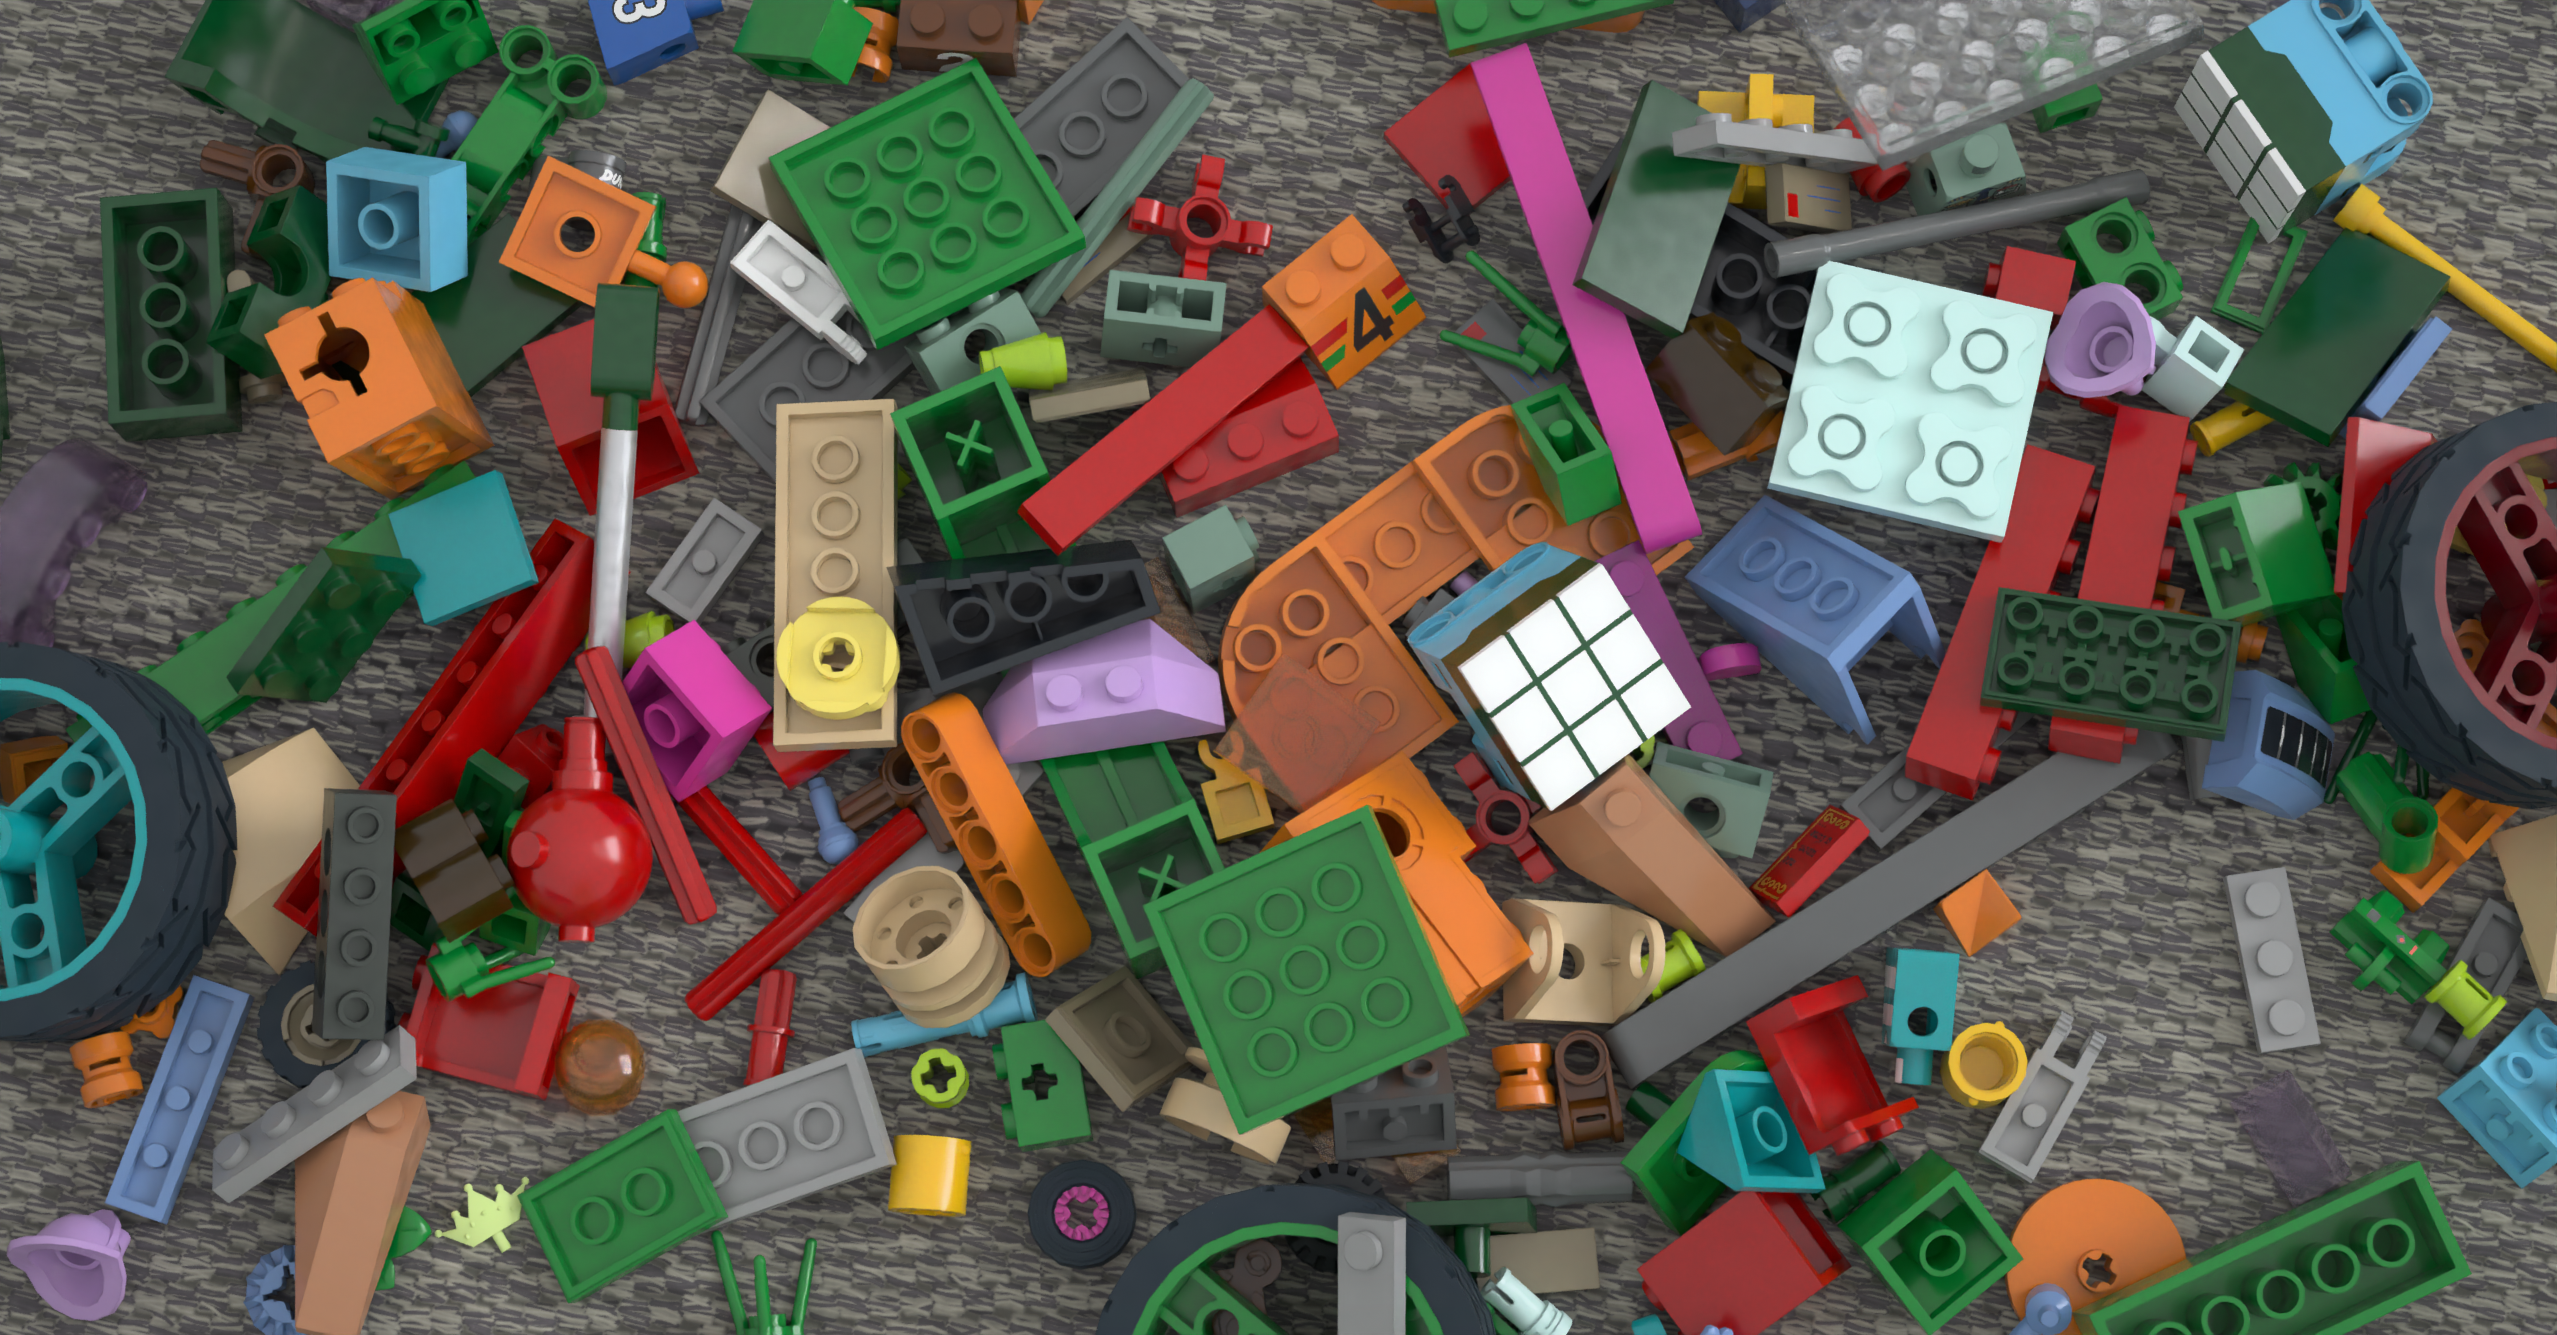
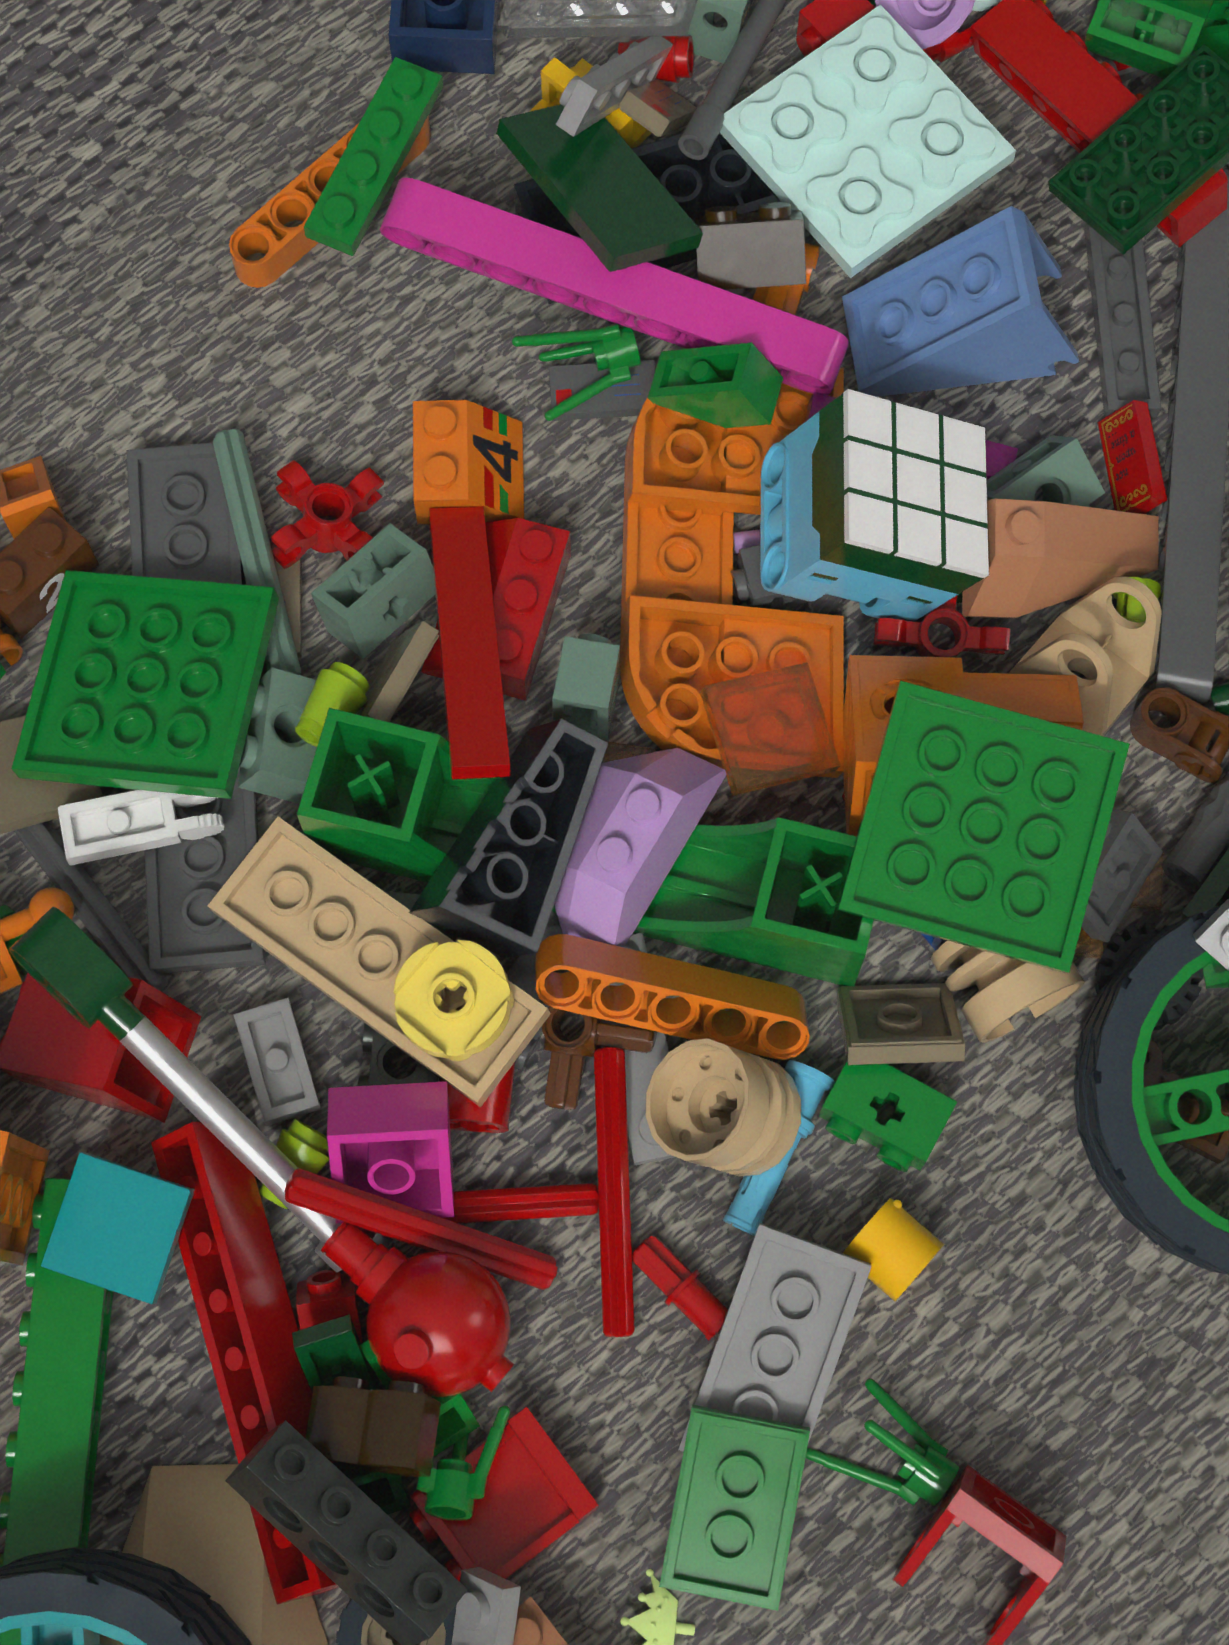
camera: 55 degrees left, 5 degrees down
(324, 625) = (89, 1384): dark green plate -> none
(599, 1066) = (606, 1442): clear orange hair -> none
(835, 838) = (573, 1126): medium blue piece -> none
(956, 1086) = (839, 1181): lime bush -> none
(1080, 1246) = (1022, 1137): black bush -> none
(1233, 800) = (768, 804): yellow plate -> none
(1452, 137) = (415, 304): red tile -> none
(1457, 213) = (463, 370): black piece -> none
(1527, 1090) = (1155, 771): orange wheel -> none
(1730, 661) = (948, 398): dark pink tile -> none
(1956, 733) = (1121, 290): red brick -> none

